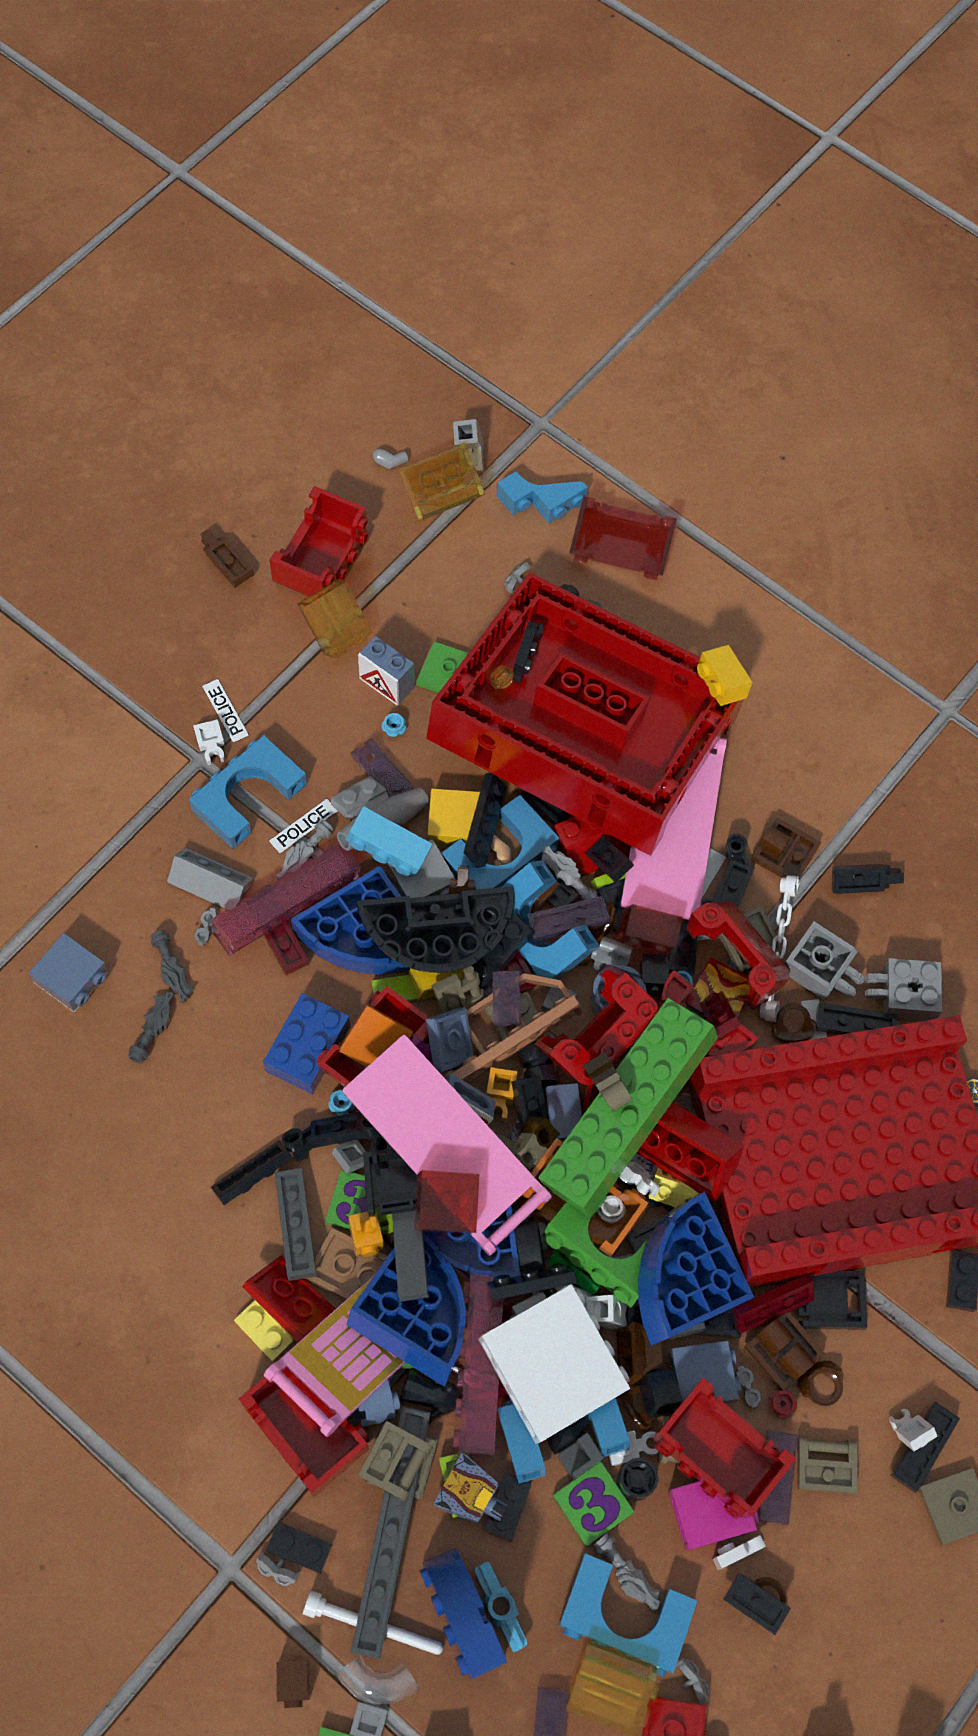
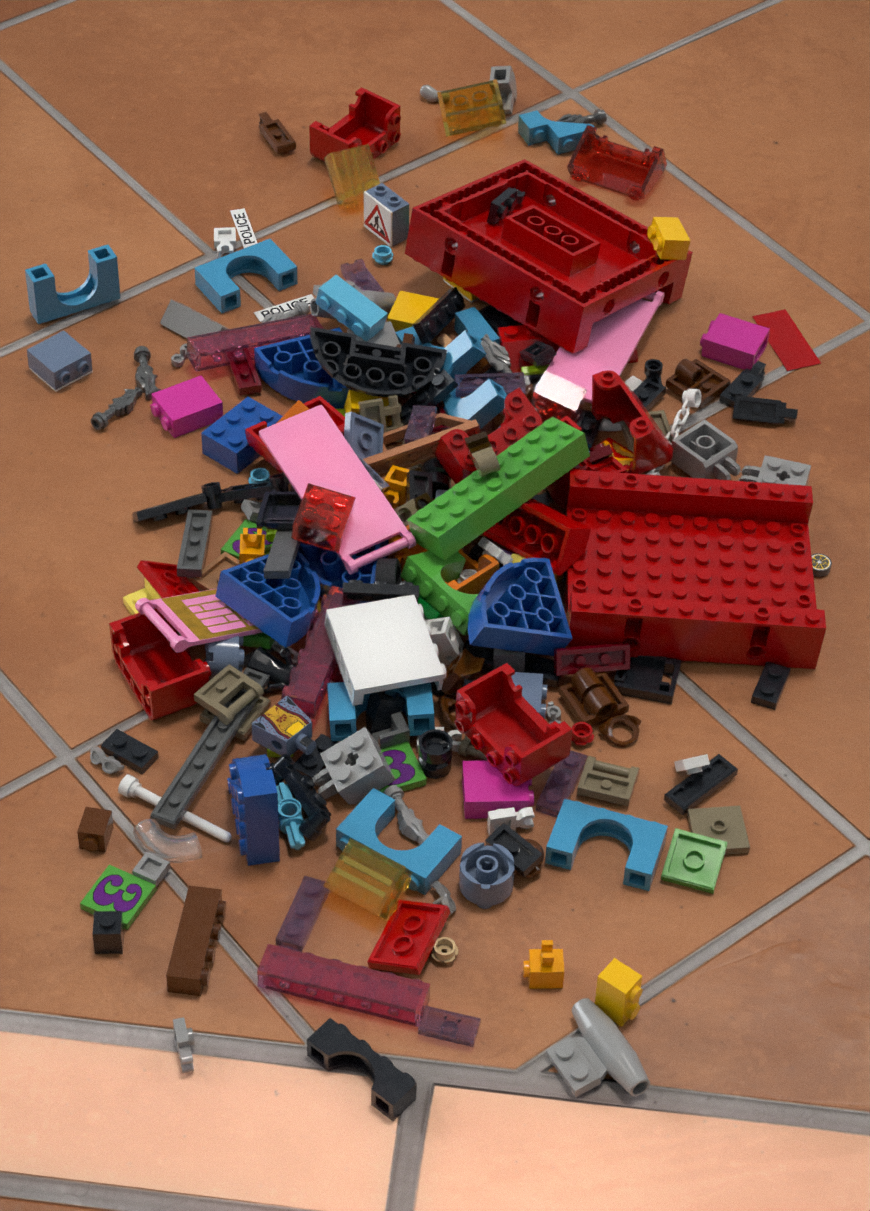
camera: 15 degrees right, 20 degrees down
(85, 850) = (99, 288): none -> dark azure arch
(232, 1012) = (186, 406): none -> dark pink brick
(501, 677) = (478, 214): clear yellow plate -> none
(513, 1574) = (304, 791): none -> black plate
(541, 1525) = (353, 768): none -> light grey hinge
(555, 472) = (599, 117): none -> dark grey piece
(752, 1644) = (486, 874): none -> sand blue brick
(811, 781) = (734, 341): none -> dark pink brick
(834, 842) = (745, 384): none -> black hinge
(862, 759) = (787, 340): none -> red sticker
(887, 1546) = (582, 821): none -> dark azure arch
(944, 1560) = (694, 860): none -> bright green tile

